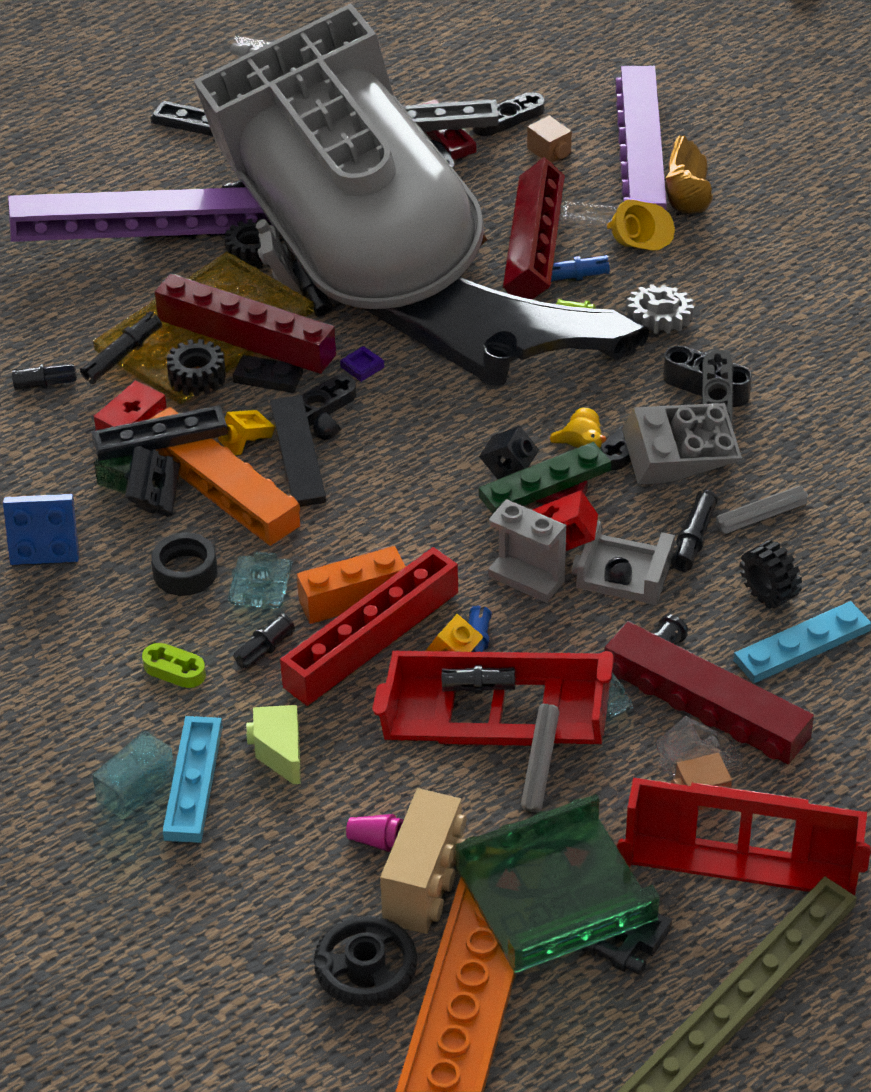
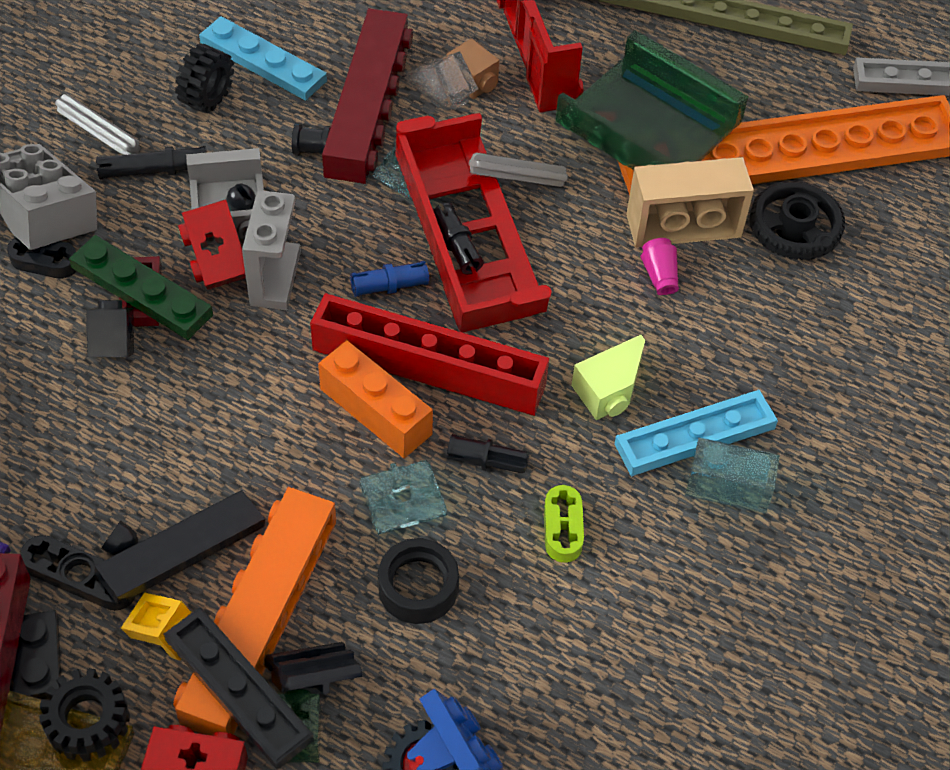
camera: 120 degrees left, 10 degrees up
(456, 637) = (409, 287): yellow bracket -> none
(581, 430) = (39, 289): yellow animal -> none

